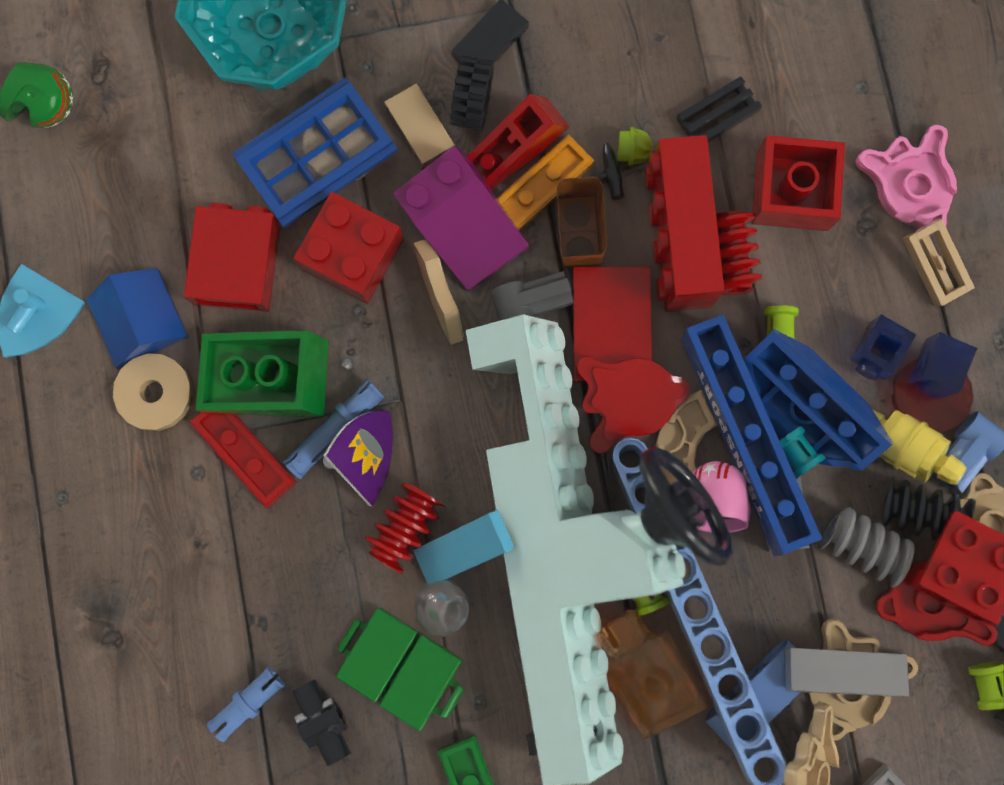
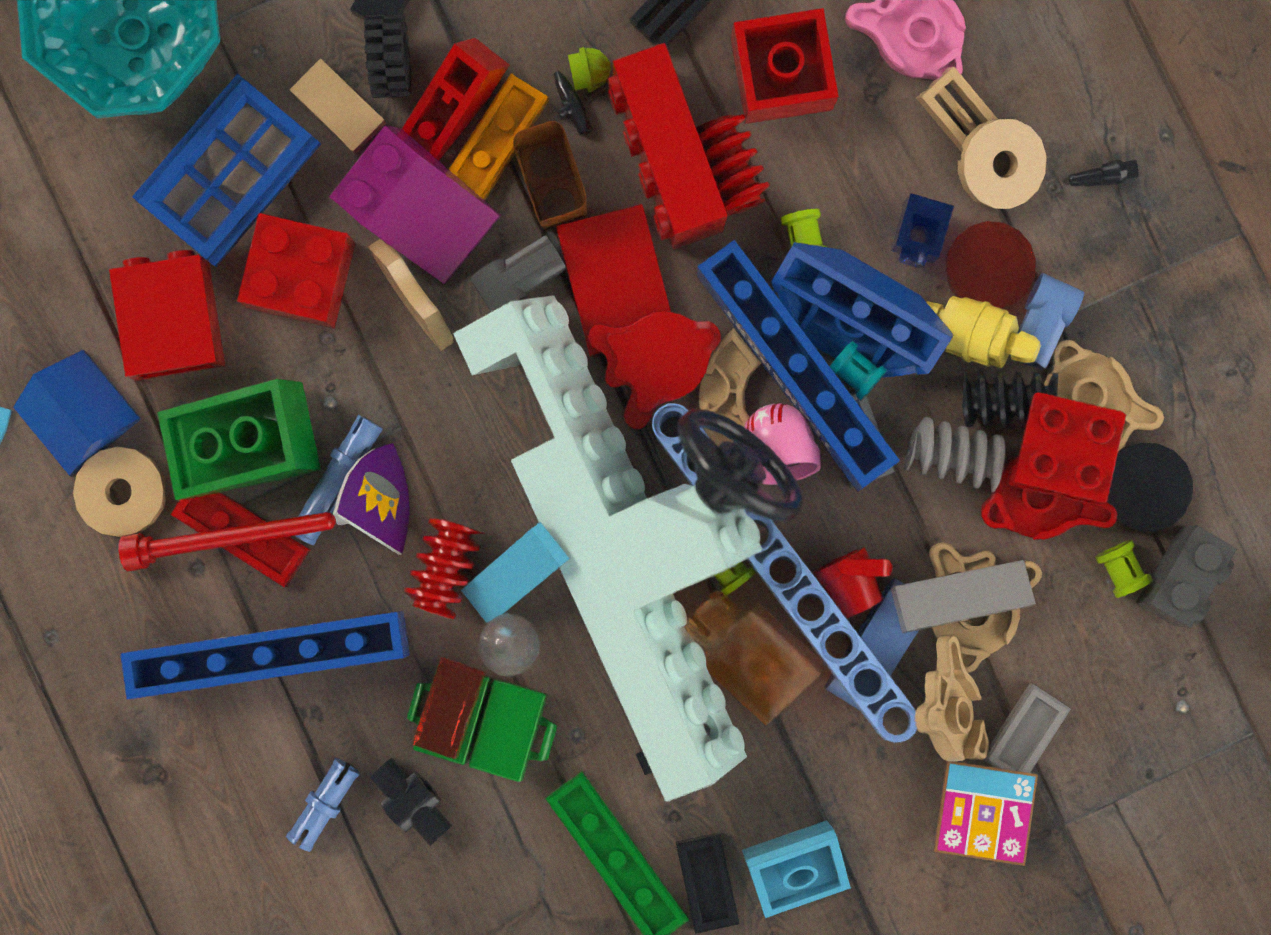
camera: 25 degrees left, 5 degrees up
(153, 445) = (139, 551): none -> red piece
(232, 561) = (265, 654): none -> blue brick
(376, 649) = (449, 707): none -> clear red tile
(753, 632) = (852, 580): none -> red piece
(942, 365) = (990, 233): clear blue brick -> none
(983, 303) = (1025, 170): none -> tan tile

